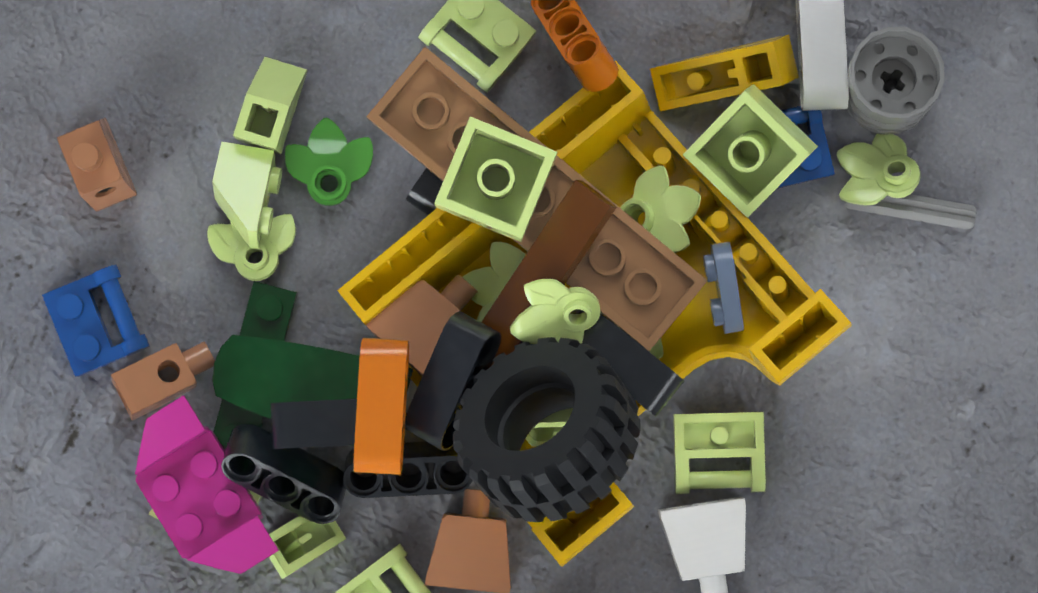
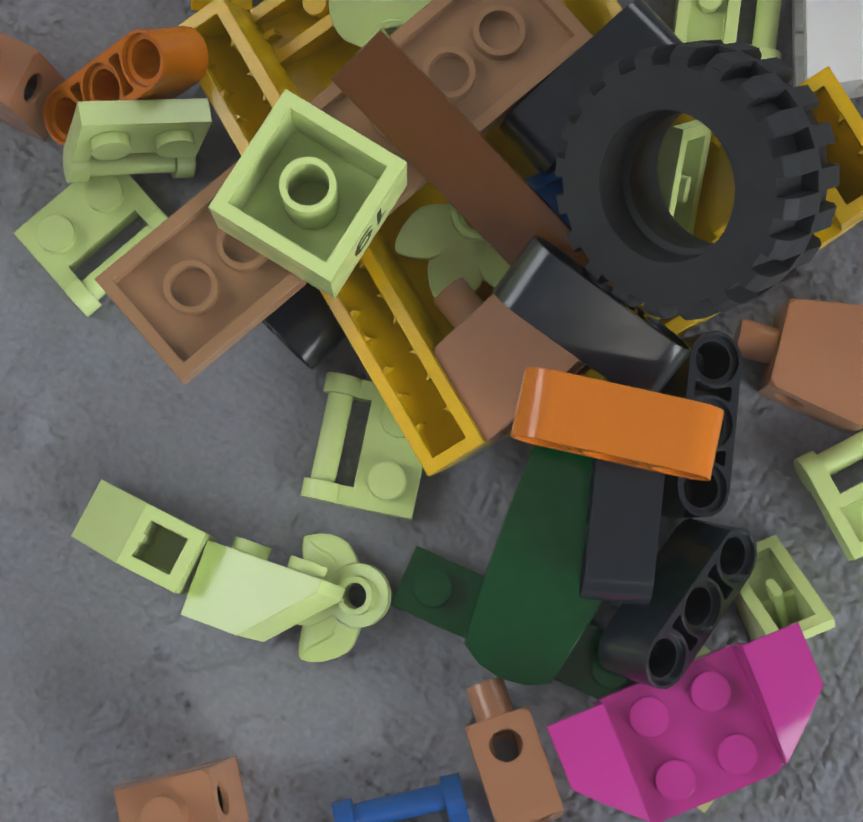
camera: 85 degrees left, 5 degrees down
(329, 156) = (232, 466): bright green plate -> none
(340, 262) = (387, 466): none -> yellowish green plate
(538, 50) = (135, 138): none -> yellowish green plate
(551, 311) = (520, 148): yellowish green plate -> none

